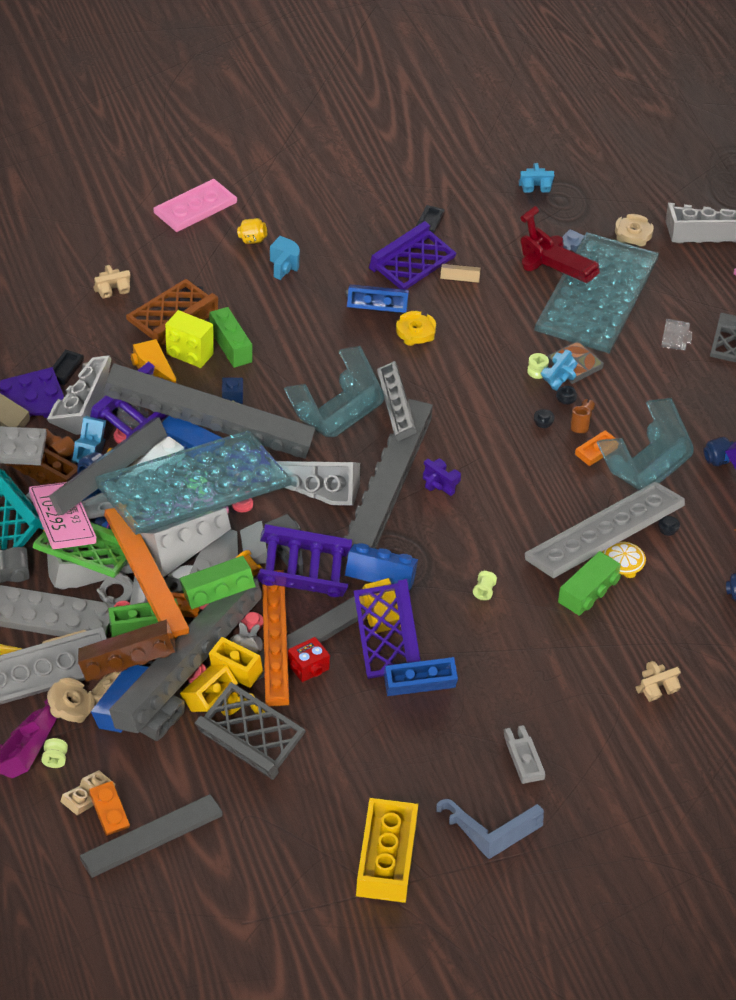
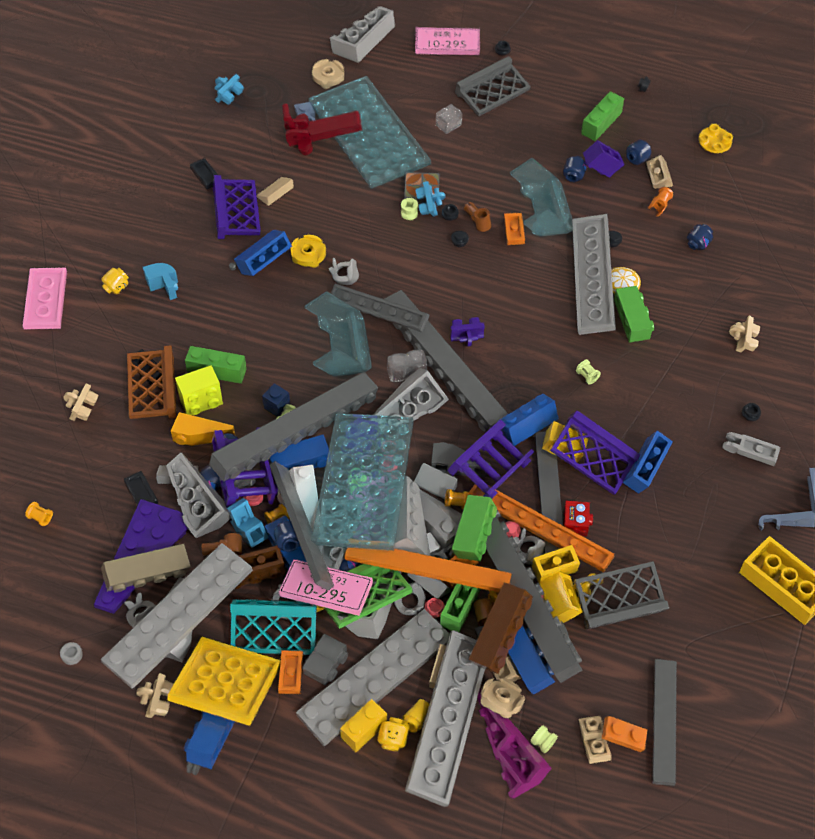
camera: 50 degrees left, 10 degrees up
(353, 450) = (402, 365): none -> clear brick
(422, 366) = (352, 271): none -> light grey piece
(568, 733) = (751, 412): none -> black plate

